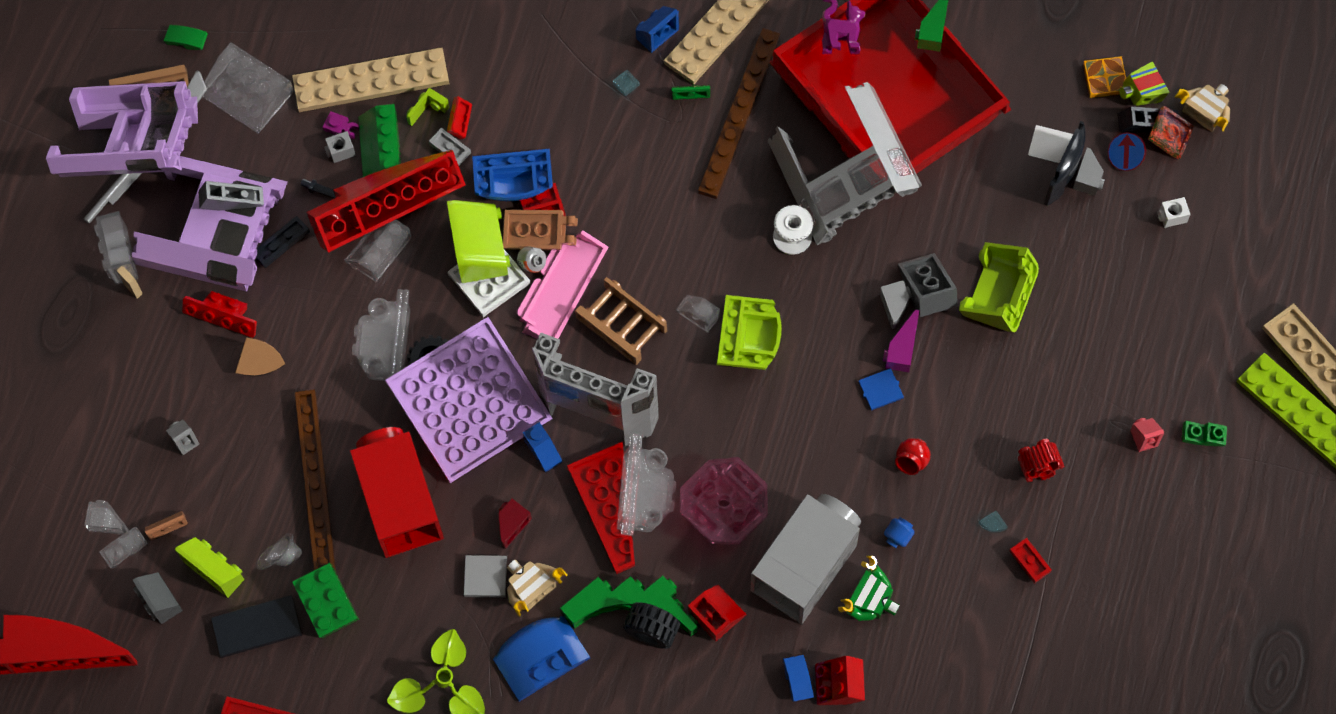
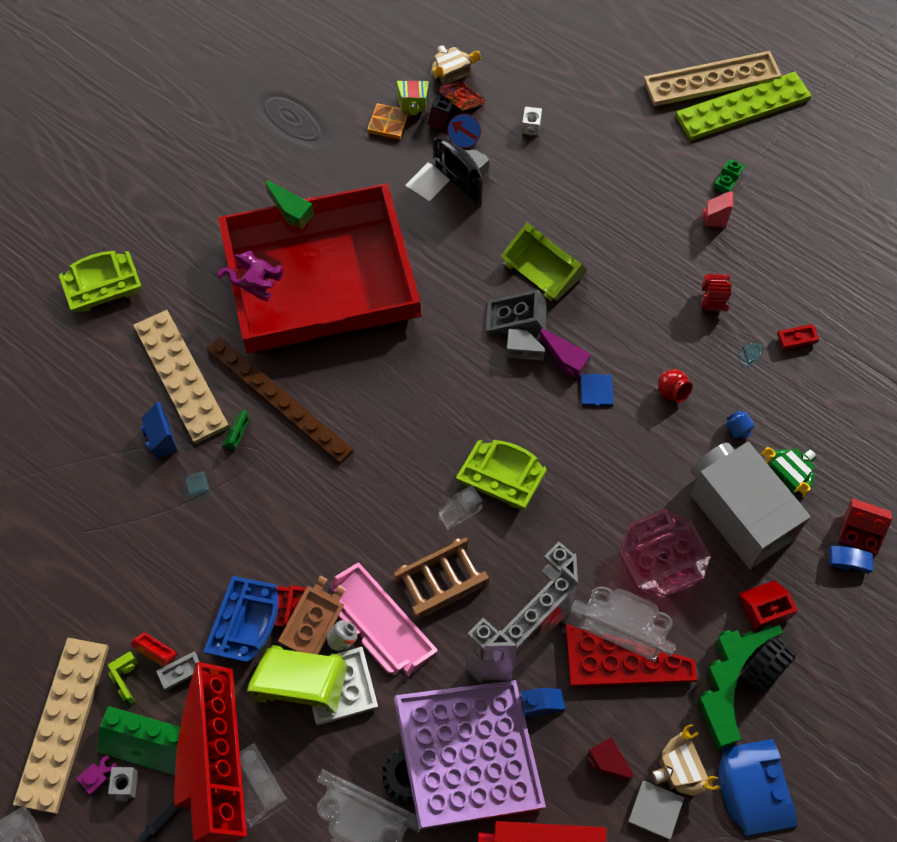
camera: 70 degrees left, 5 degrees down
(793, 229) = (420, 395): white hose -> none
(858, 181) = (411, 328): light grey piece -> none

